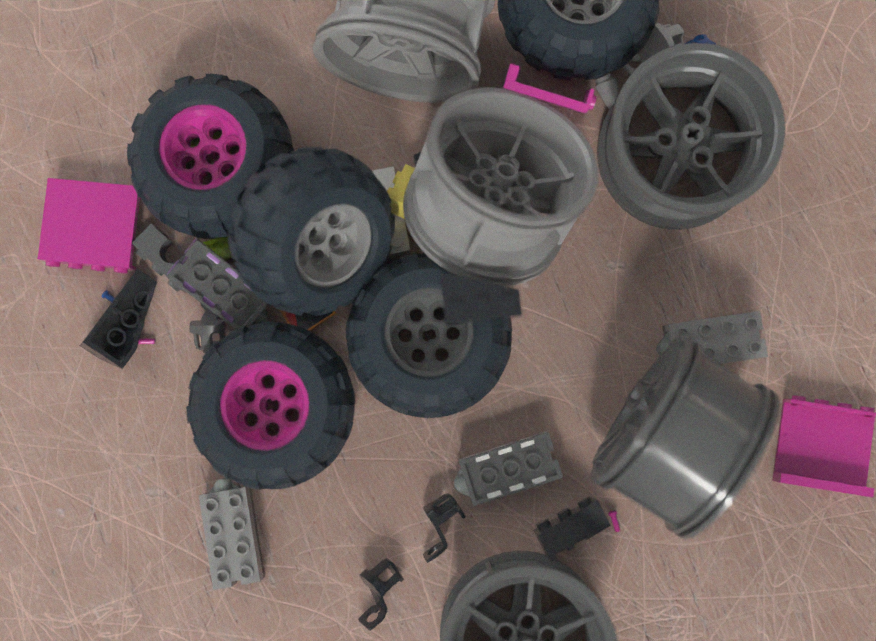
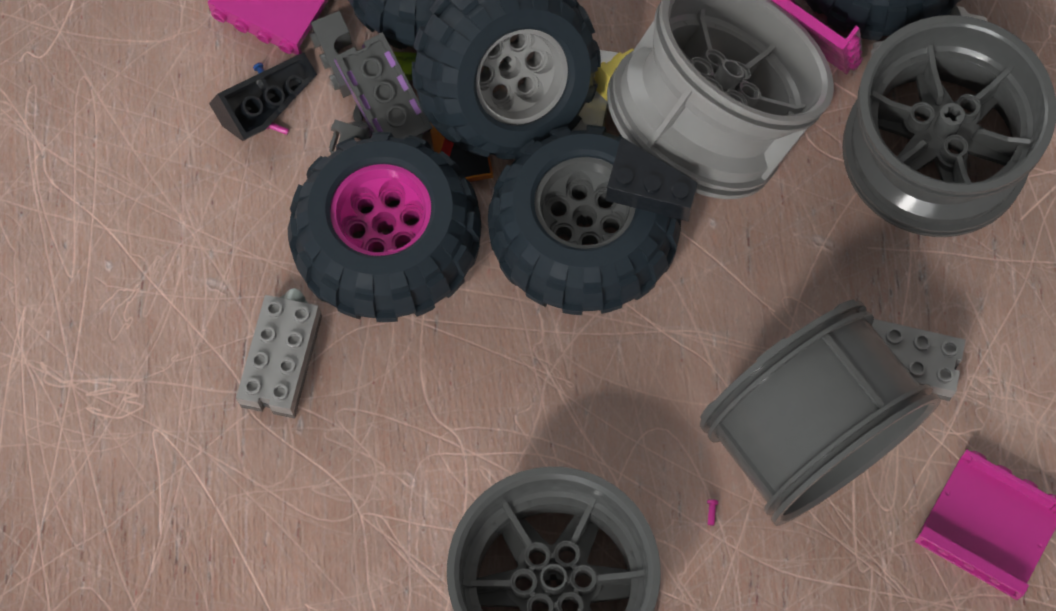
camera: 25 degrees right, 15 degrees down
(378, 589) = (415, 465): black piece -> none
(437, 516) = (511, 420): black piece -> none
(508, 469) = (613, 401): dark grey piece -> none
(571, 527) = (663, 491): black wedge -> none

